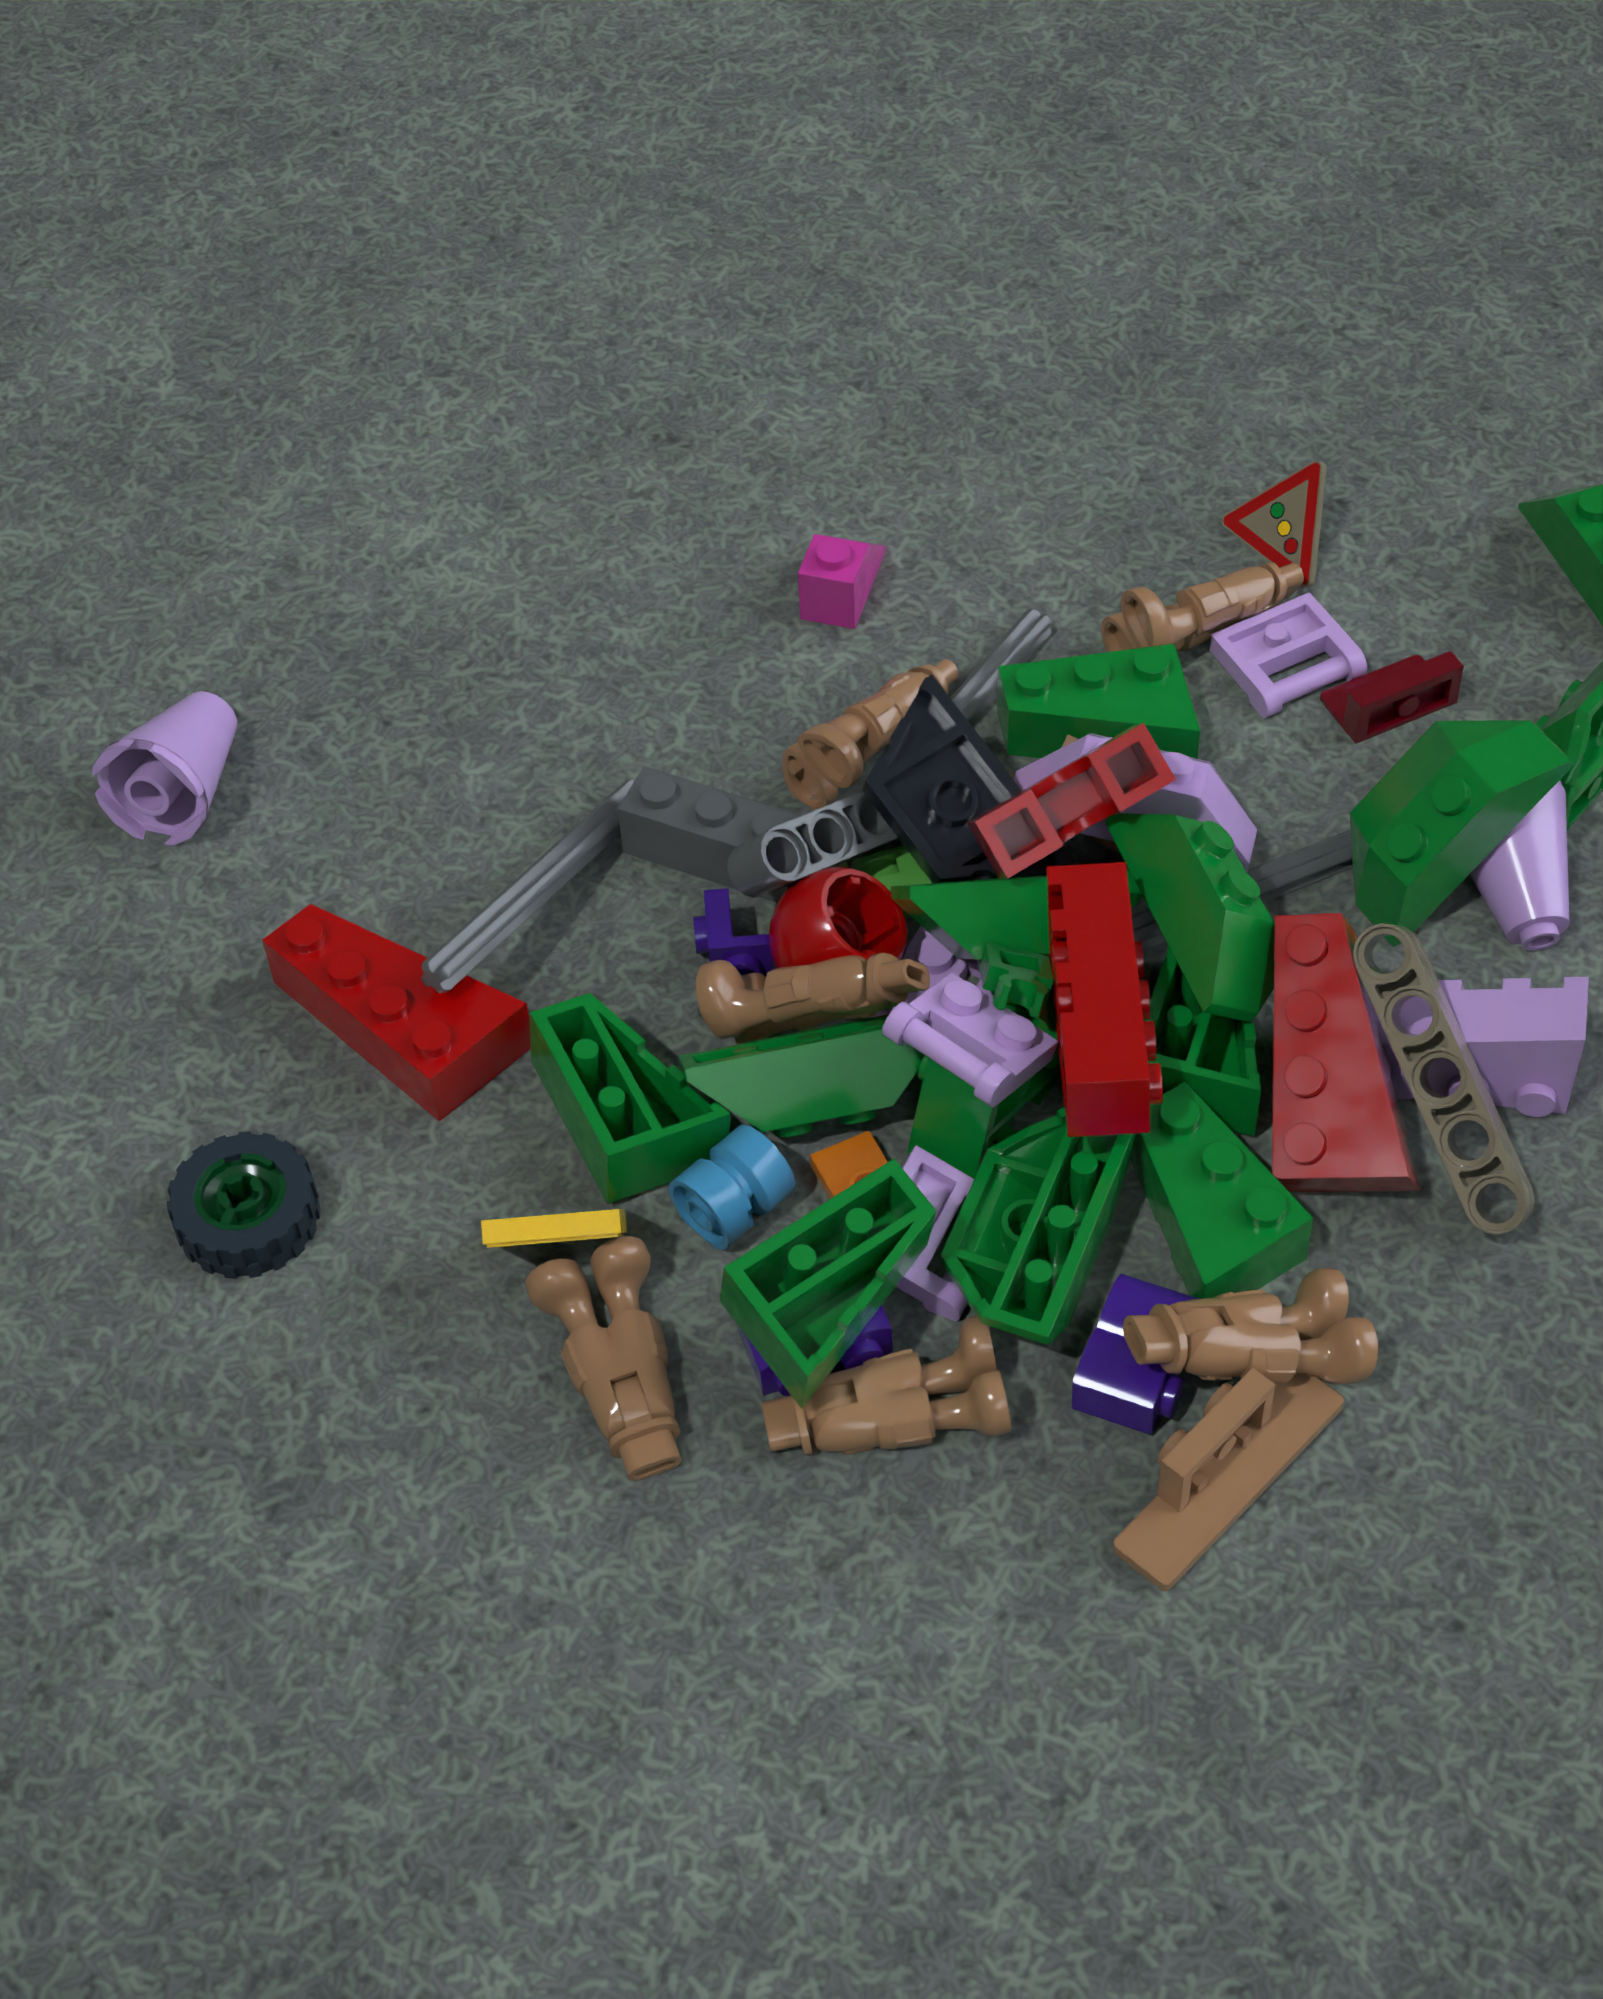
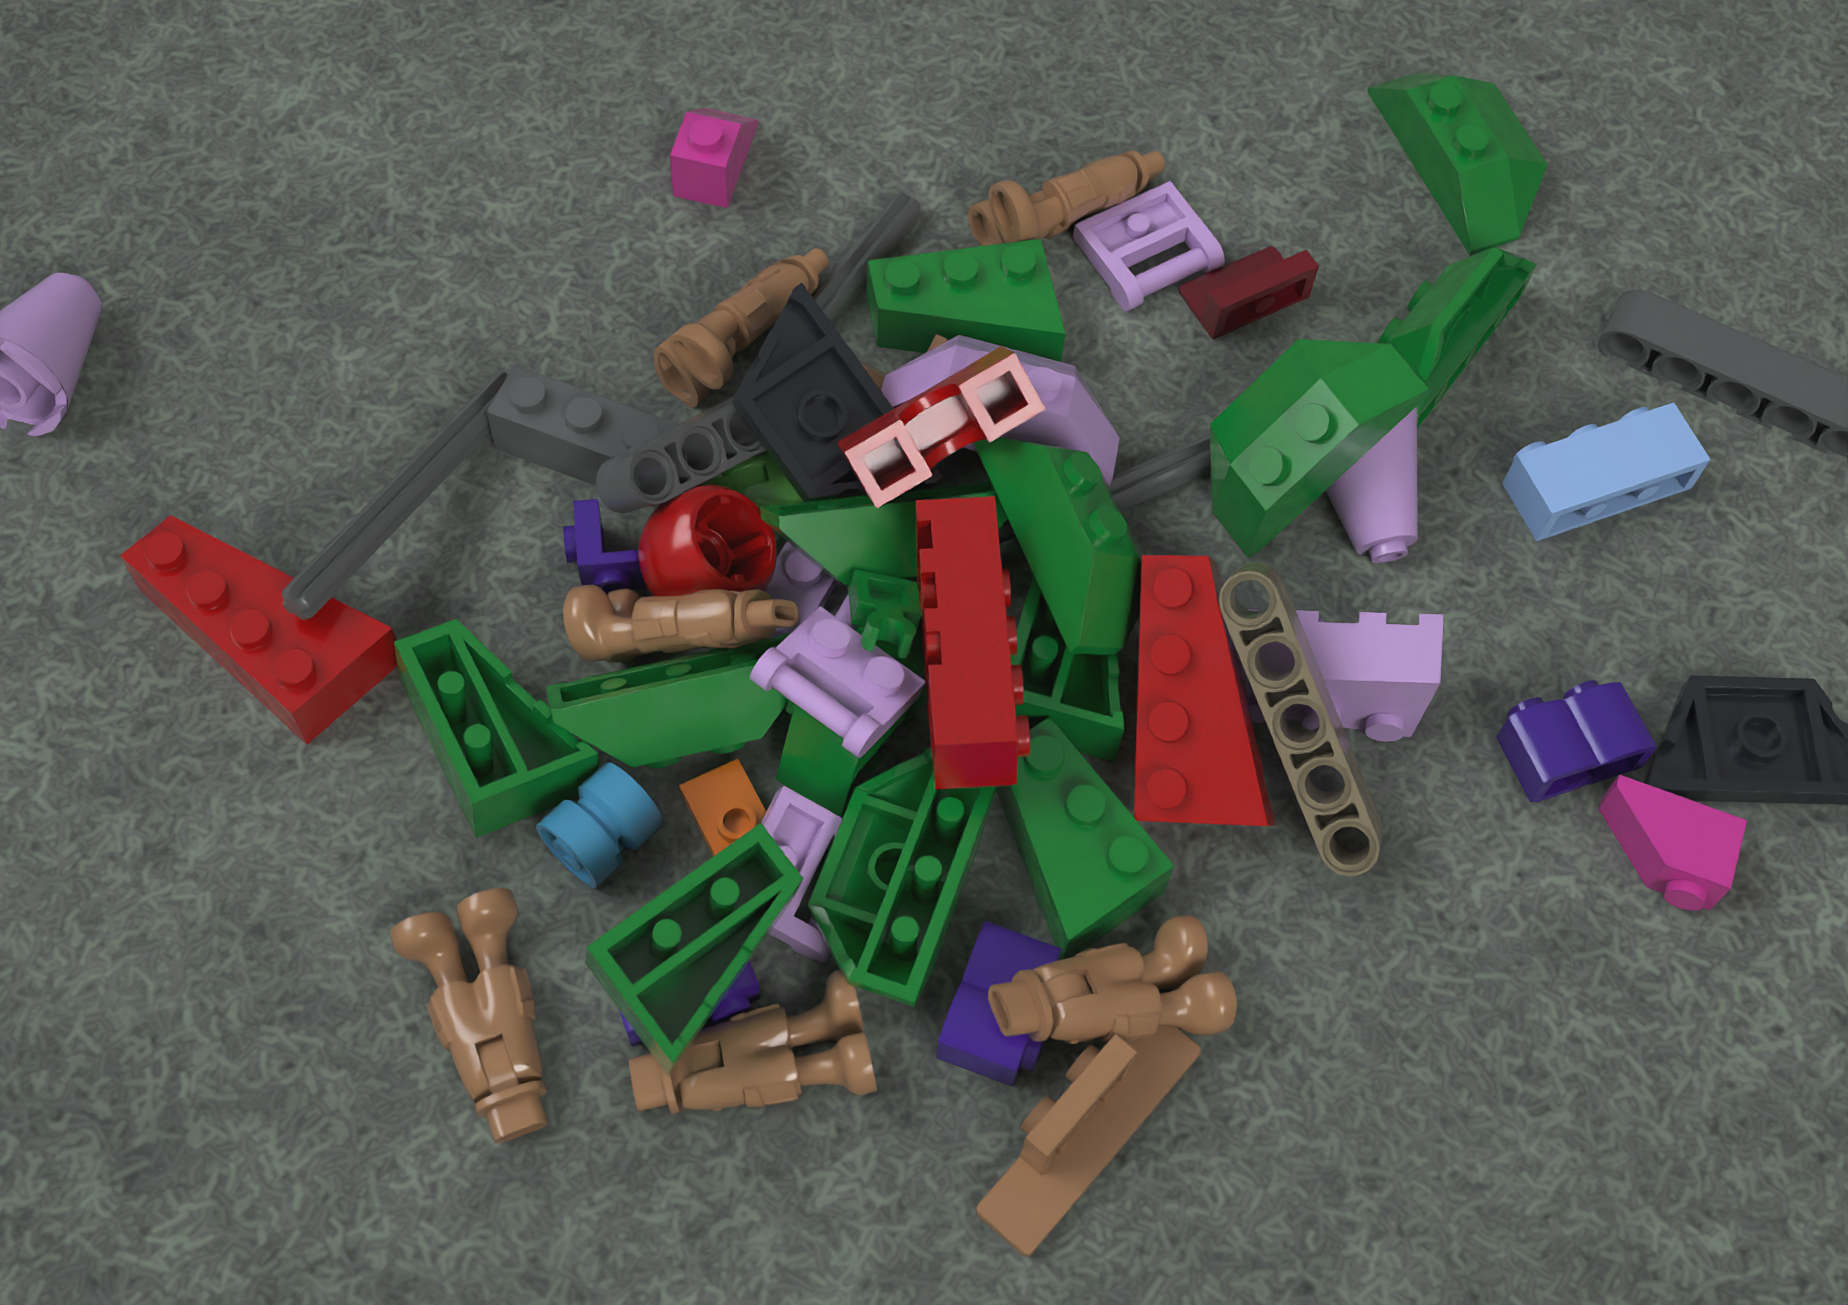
camera: 10 degrees left, 10 degrees up
(273, 1200) = (115, 874): black wheel -> none
(554, 1228) = (418, 876): yellow tile -> none
(1285, 520) = (1147, 103): piece -> none

